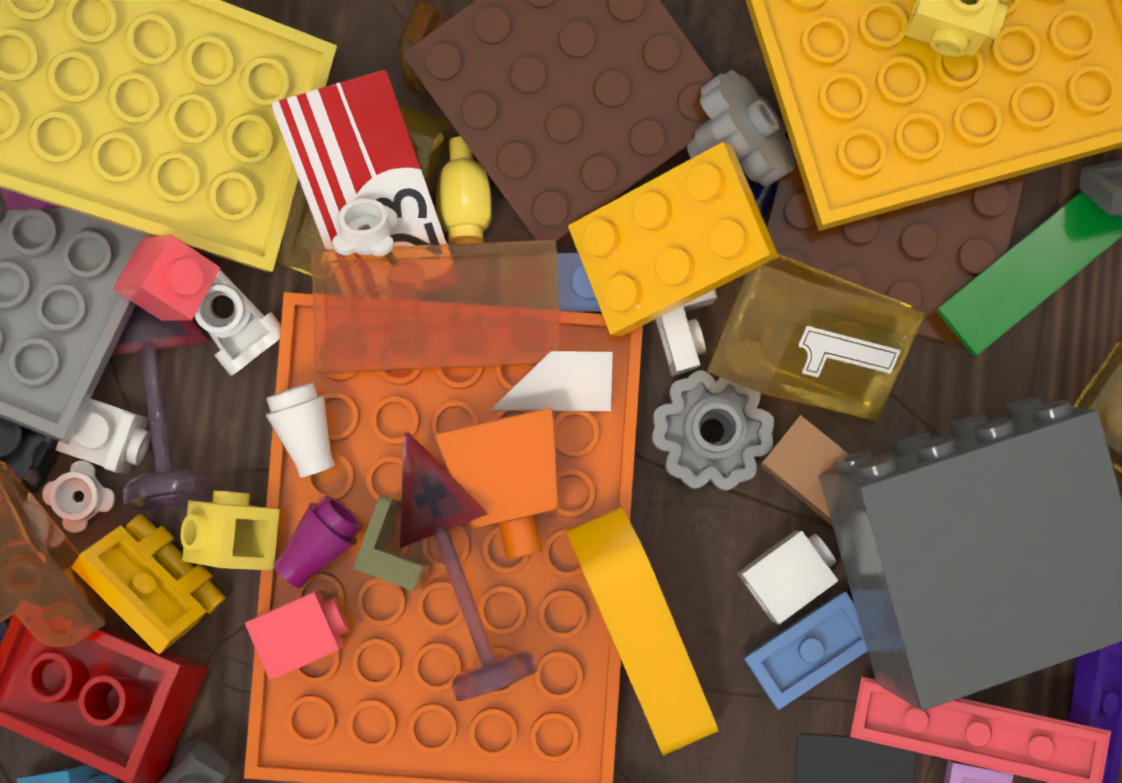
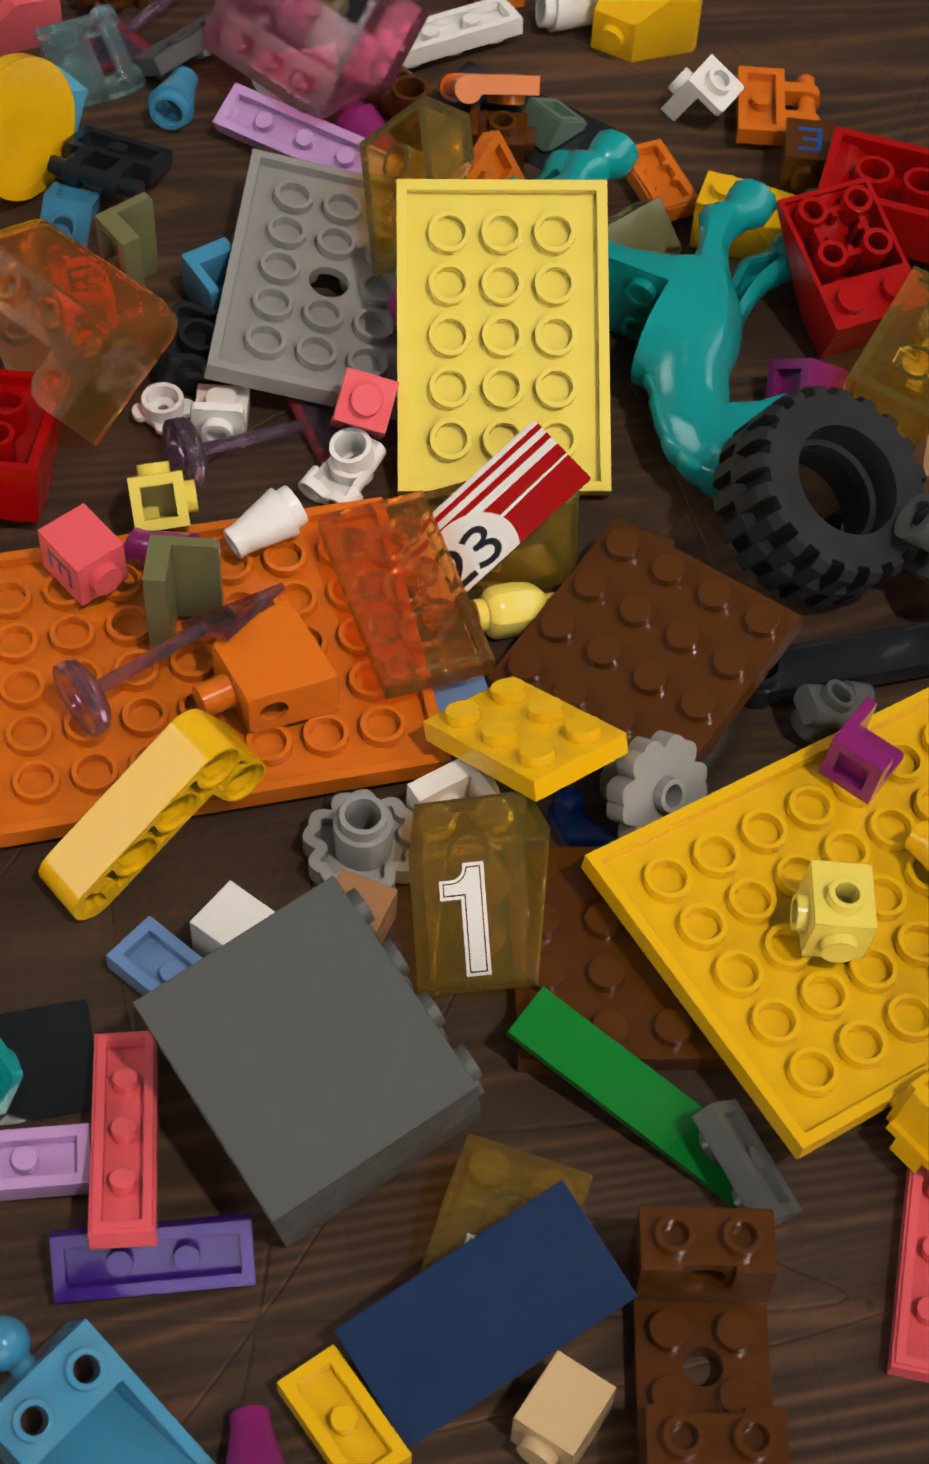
camera: 70 degrees right, 30 degrees down
(148, 582) = (91, 448): yellow plate -> none
(365, 228) = (454, 515): white plate -> none
(564, 383) = (368, 703): white sticker -> none

